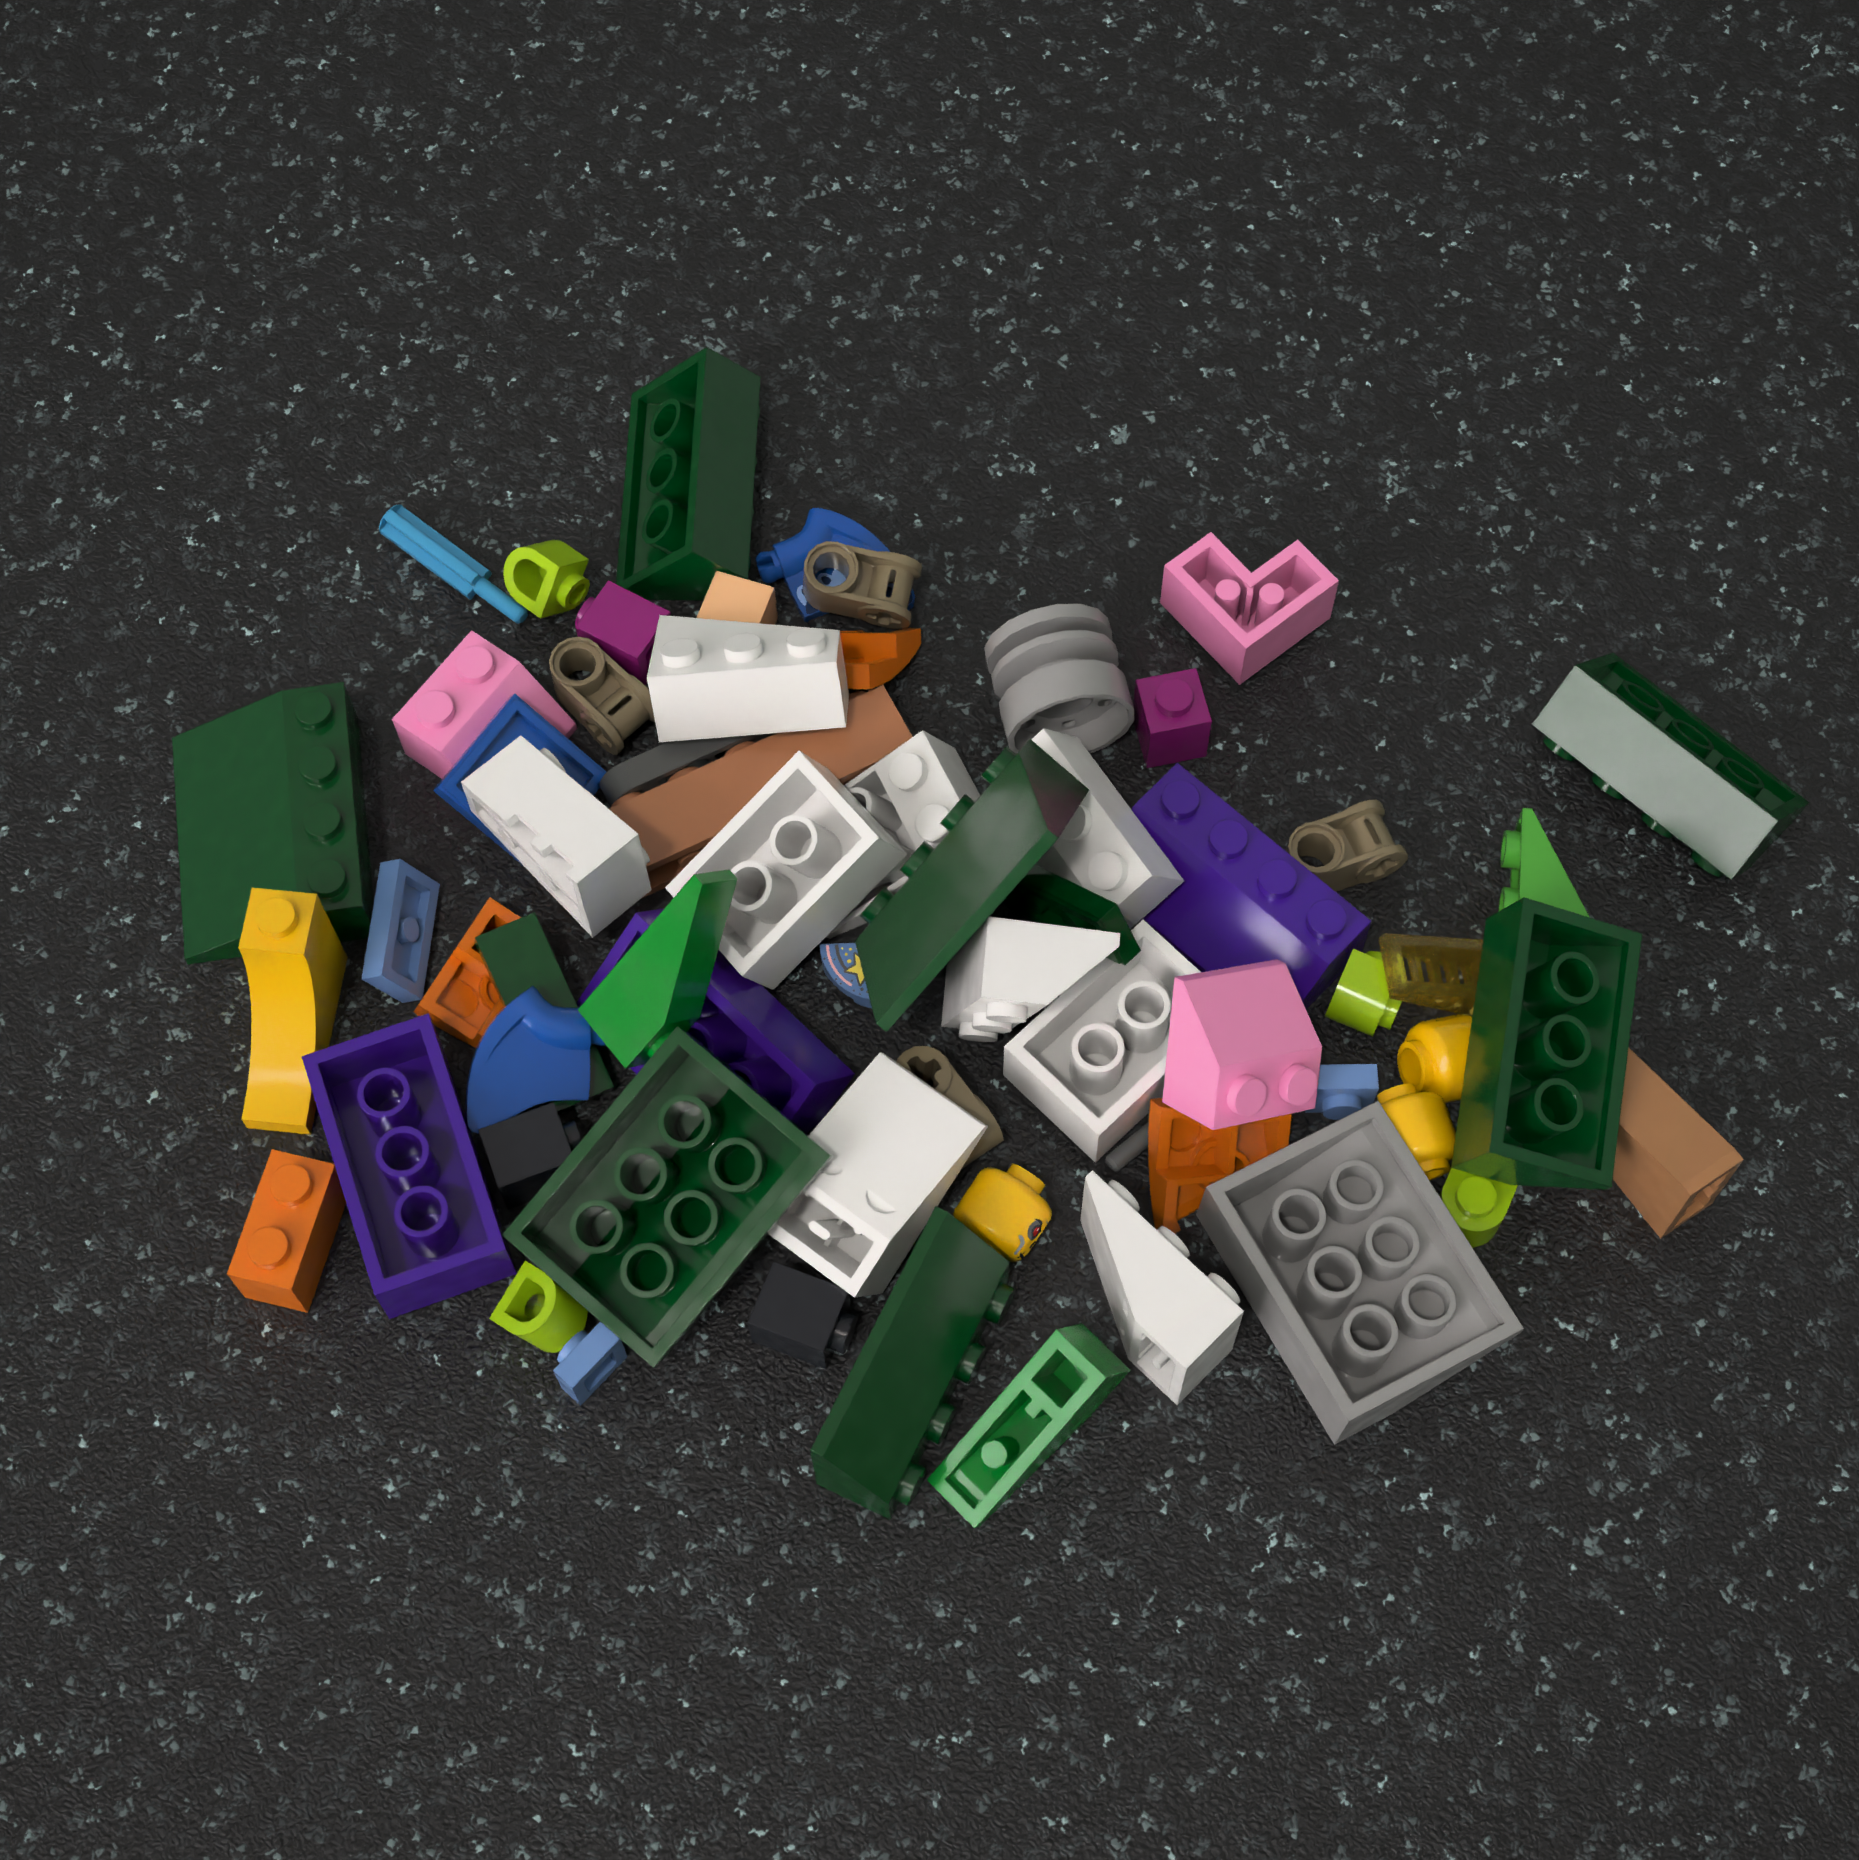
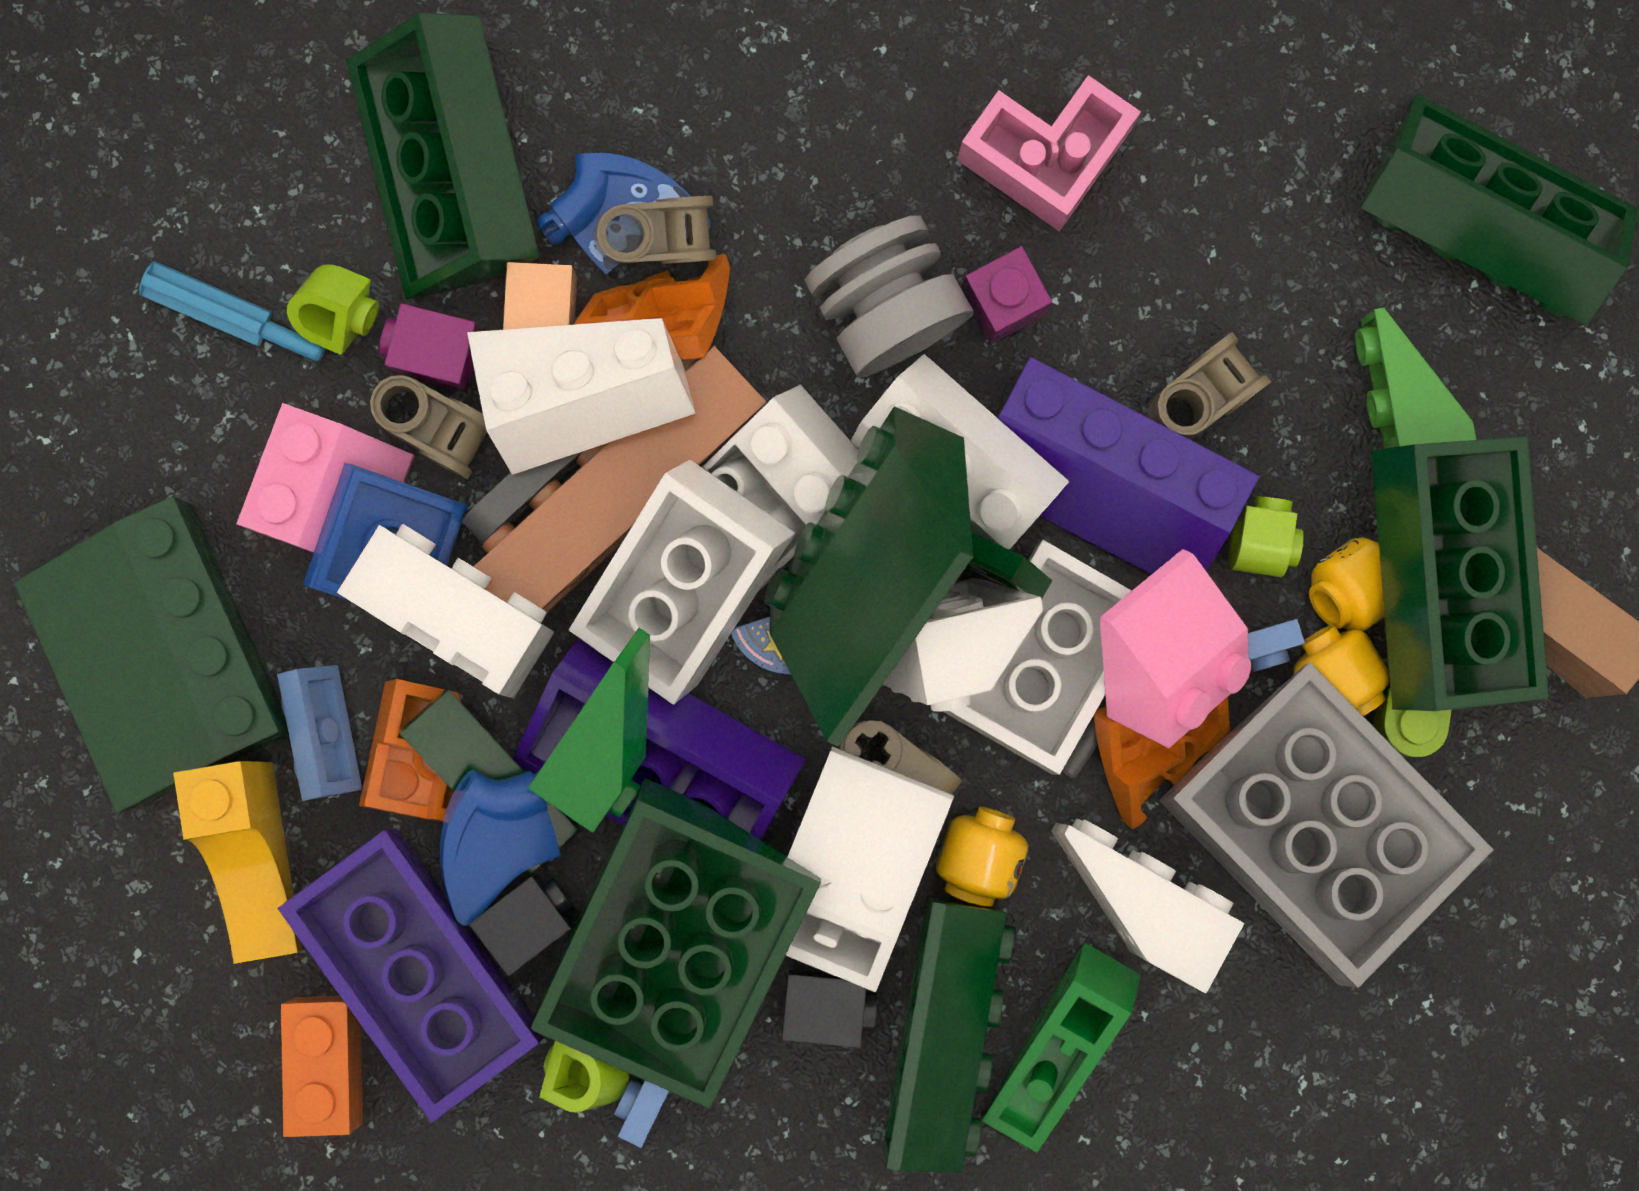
camera: 25 degrees left, 20 degrees up
(1448, 952) = (1361, 486): clear yellow slope -> none

